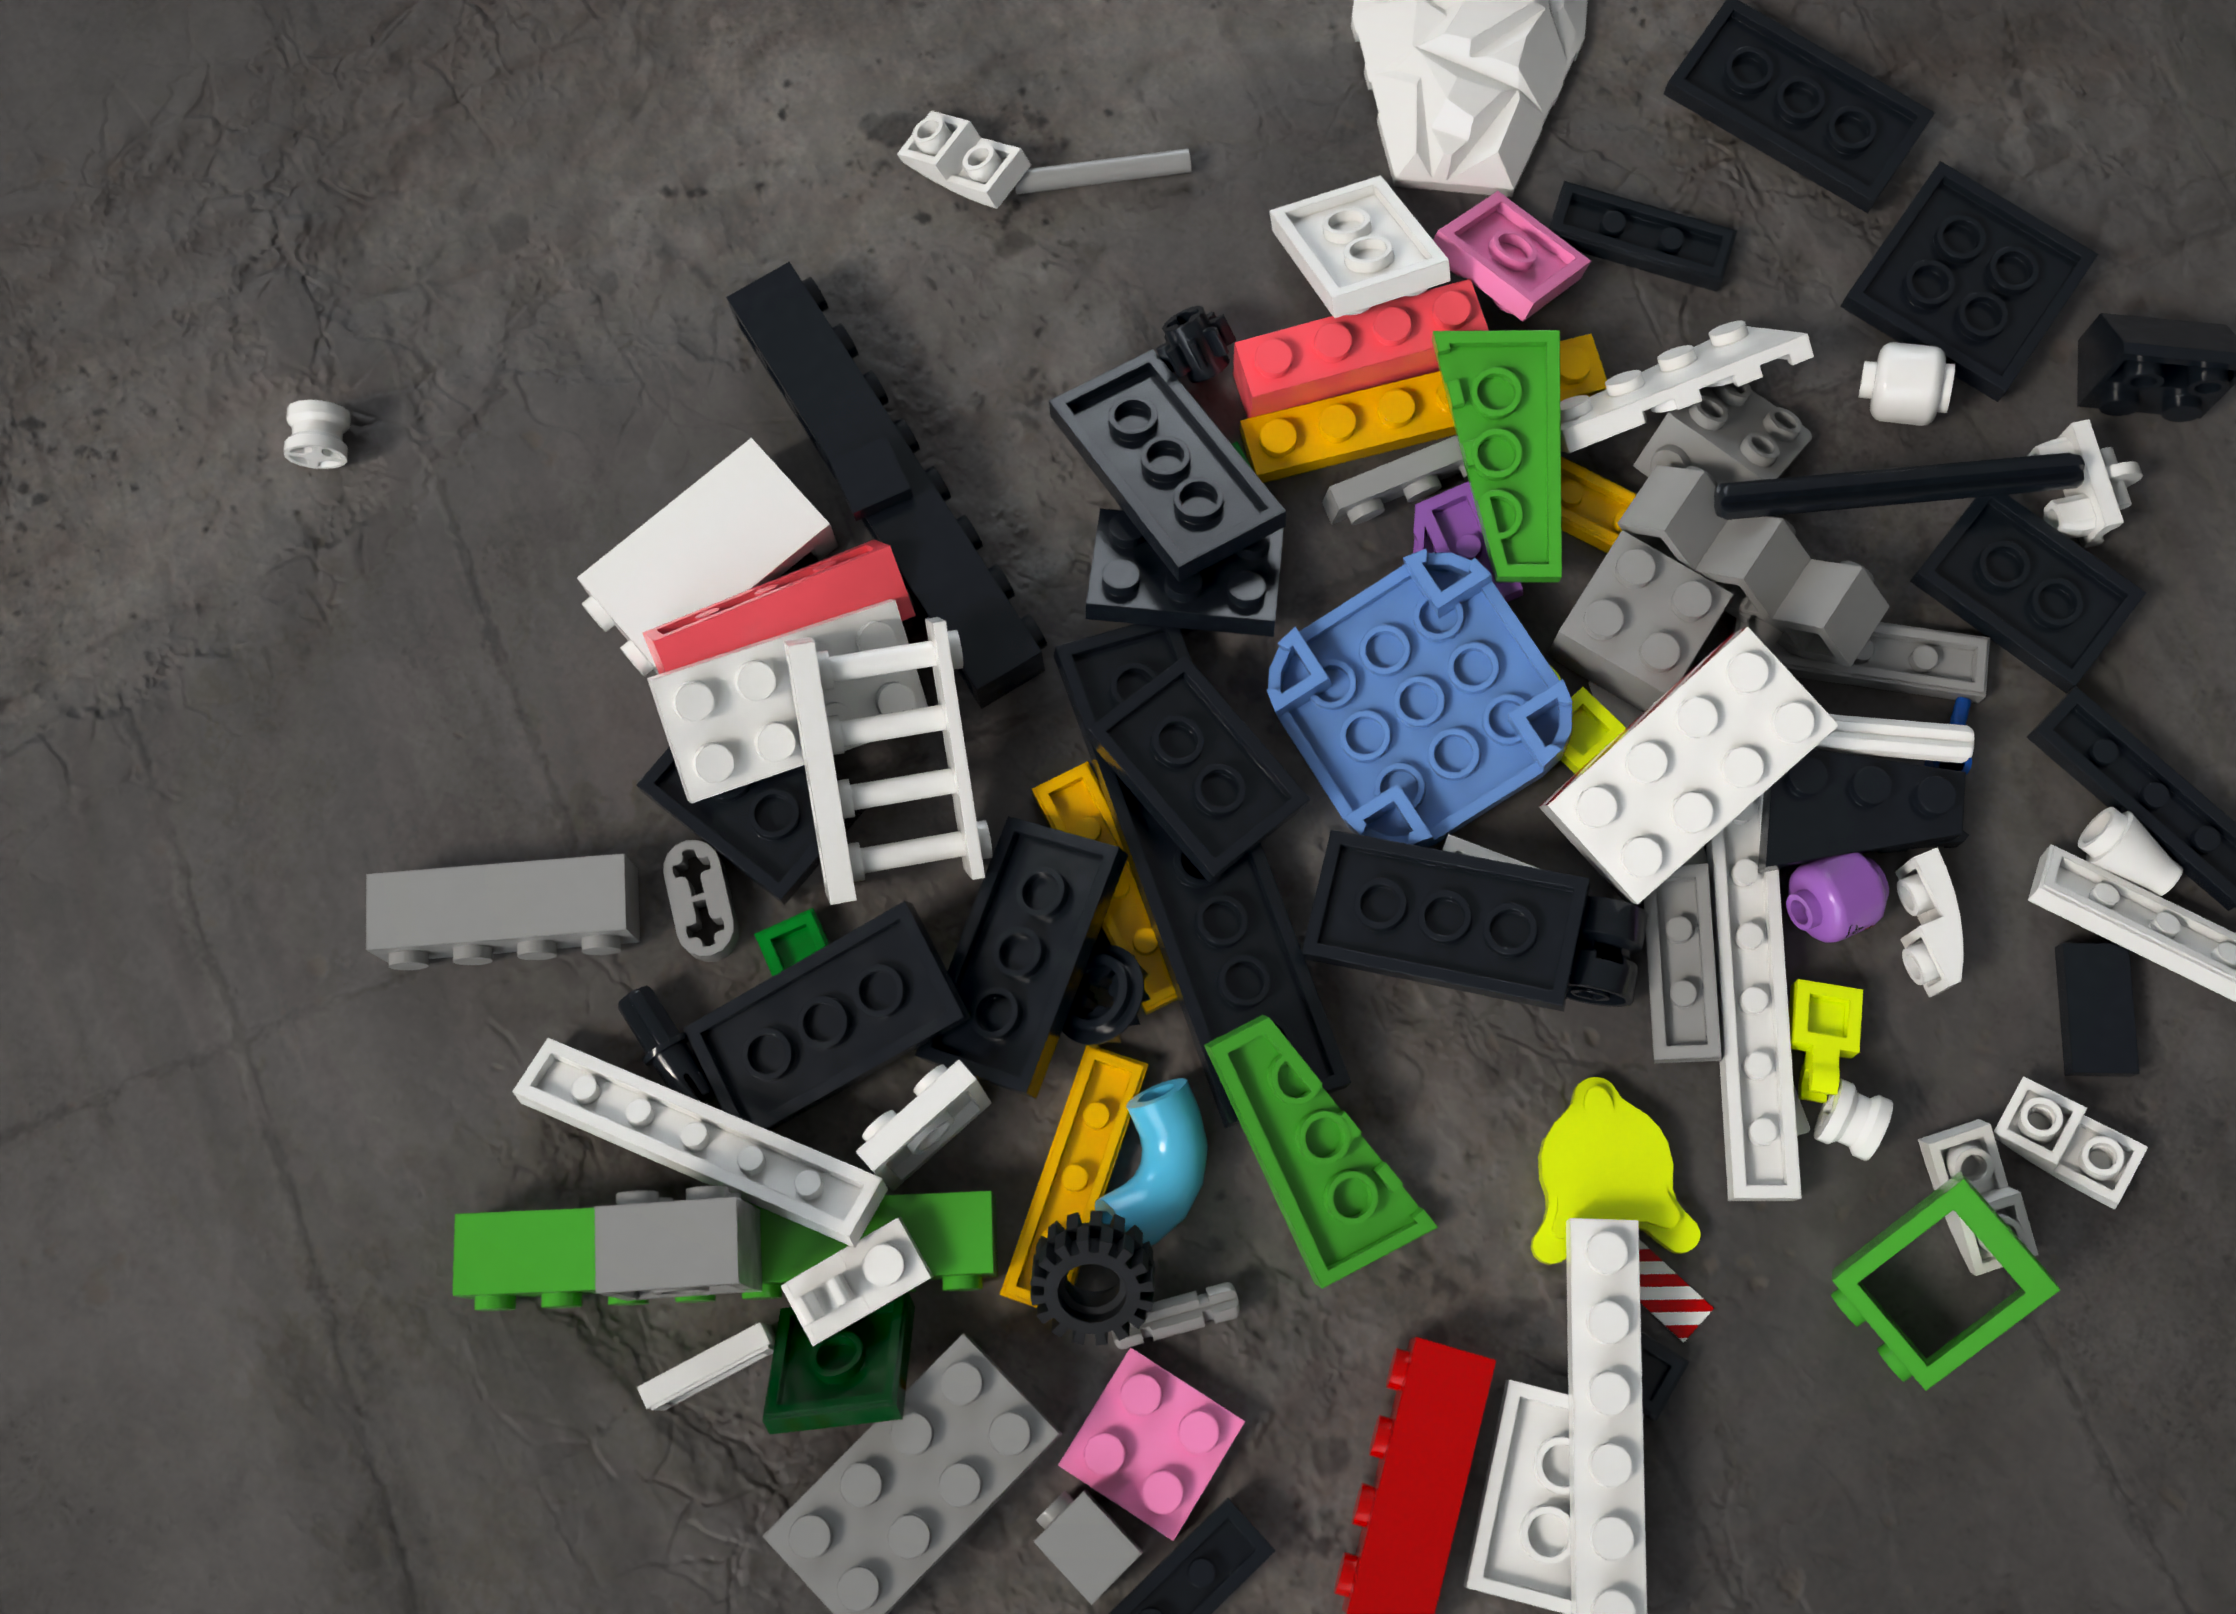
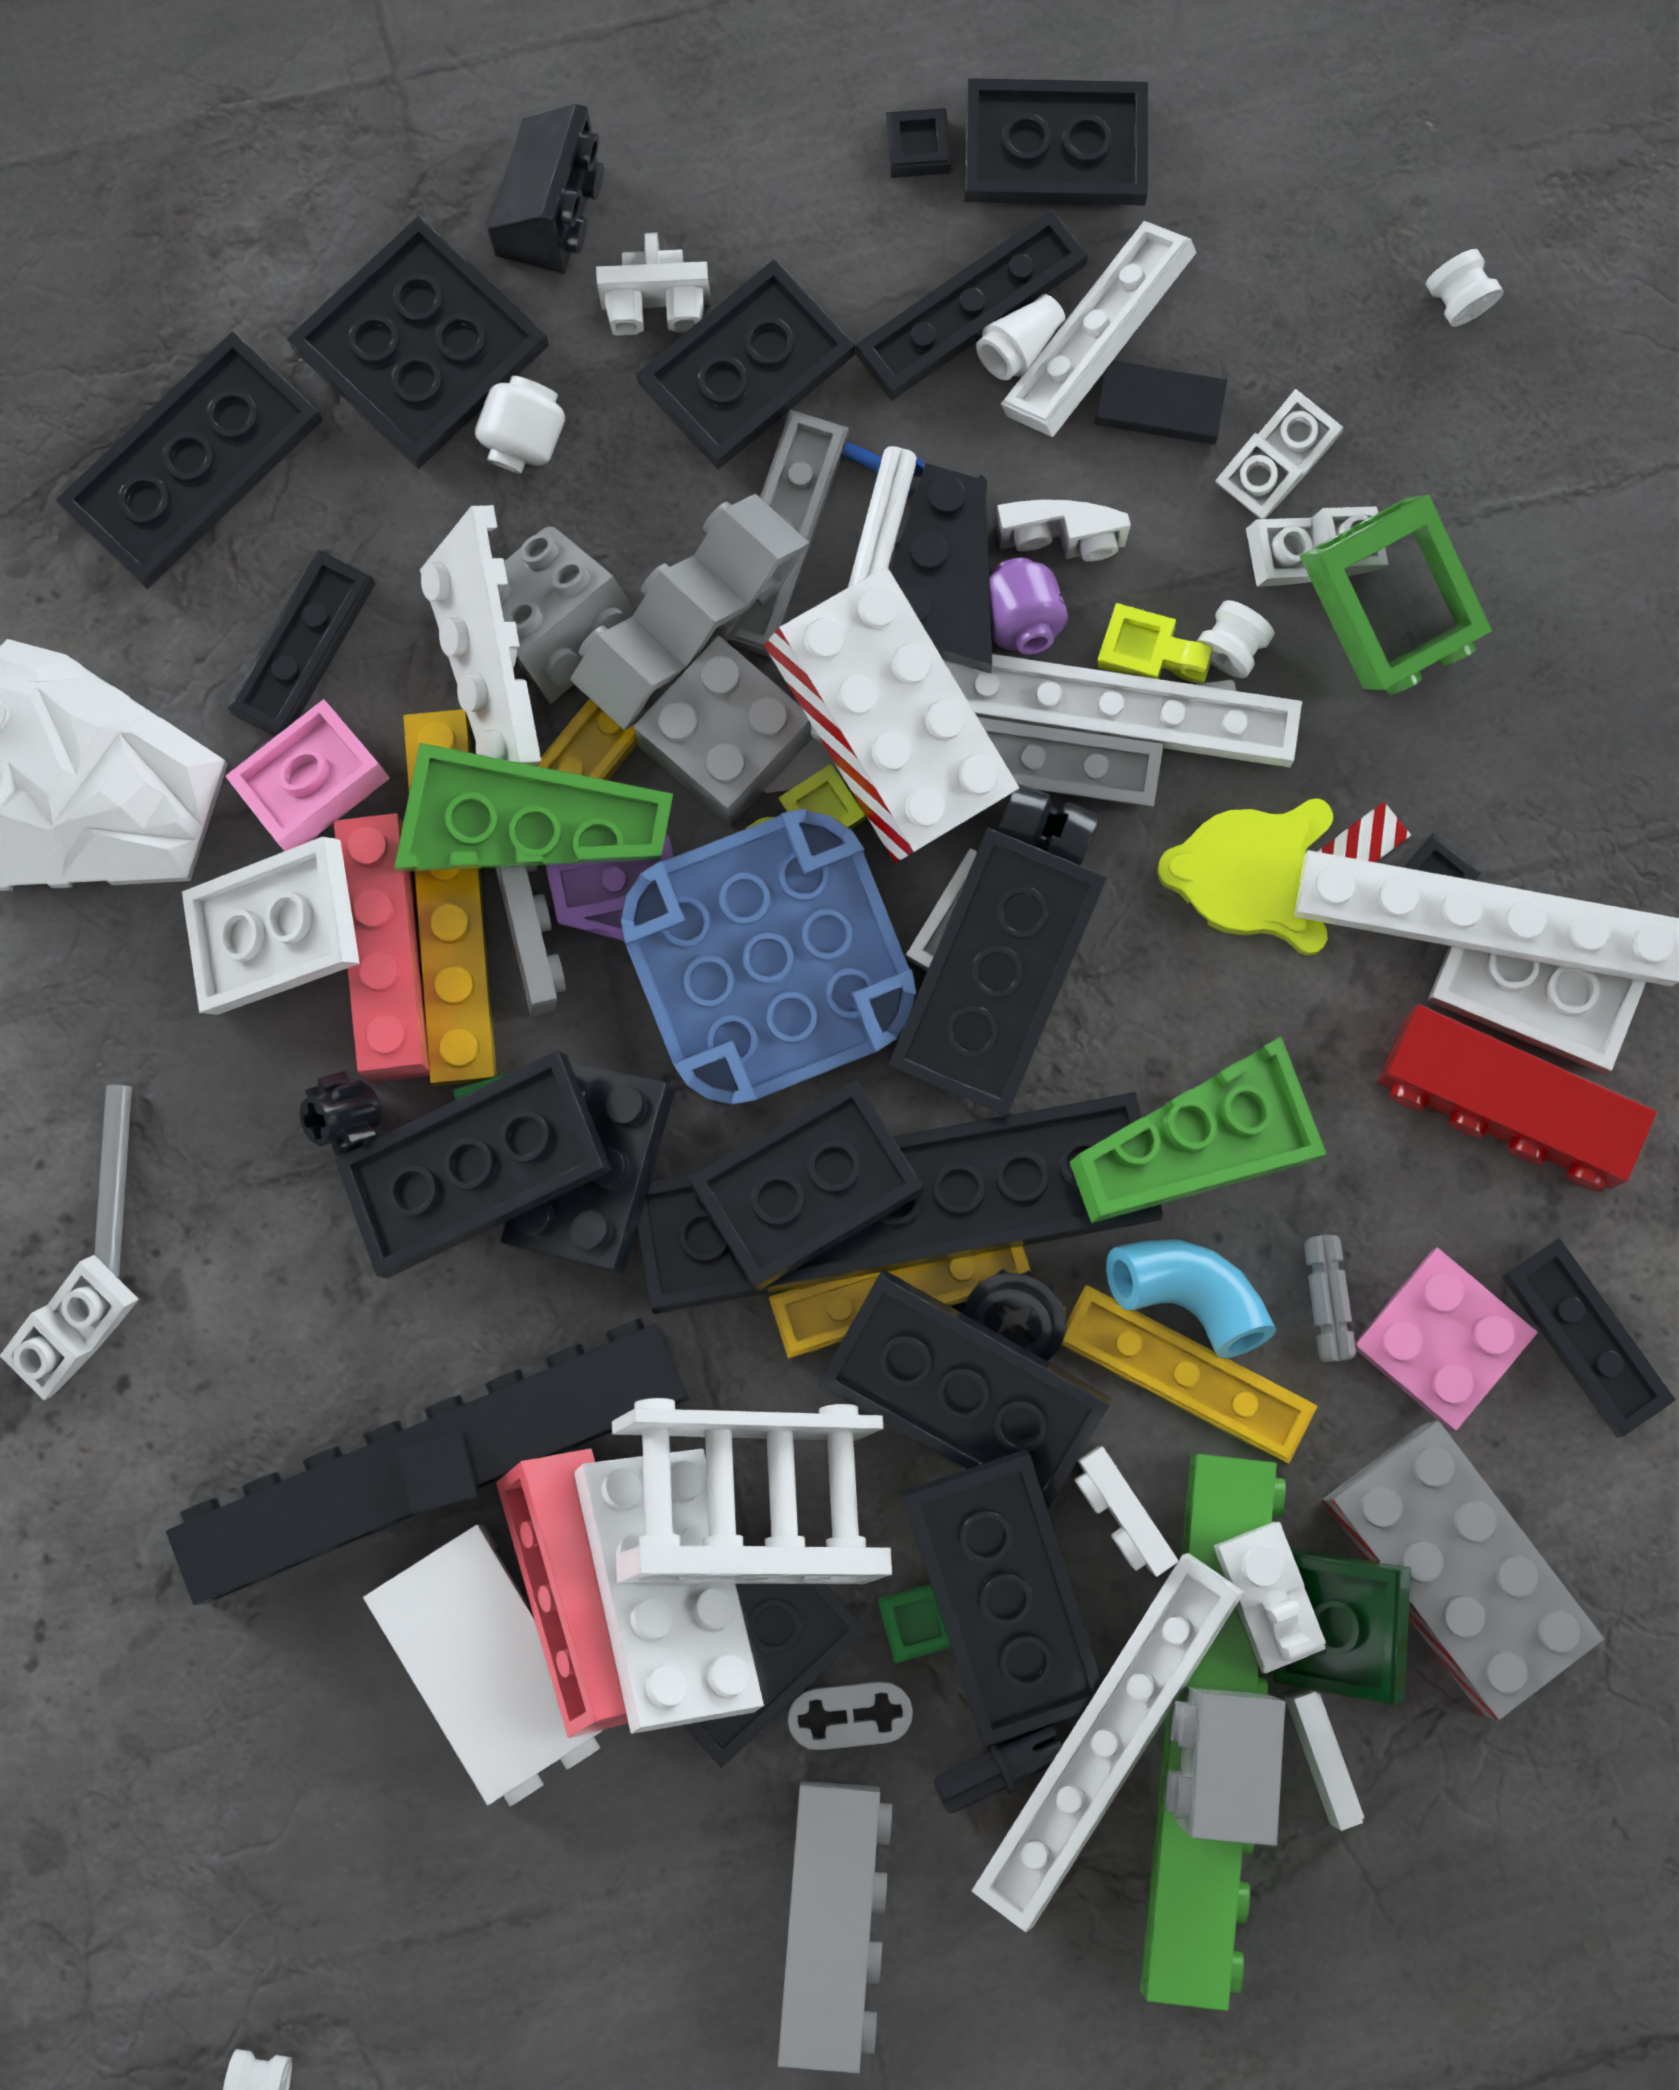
camera: 85 degrees left, 5 degrees up
(1085, 1543) = (1533, 1413): light grey brick -> none
(1093, 1310) = (1271, 1366): black tyre -> none
(1898, 486) = (638, 459): black axle -> none

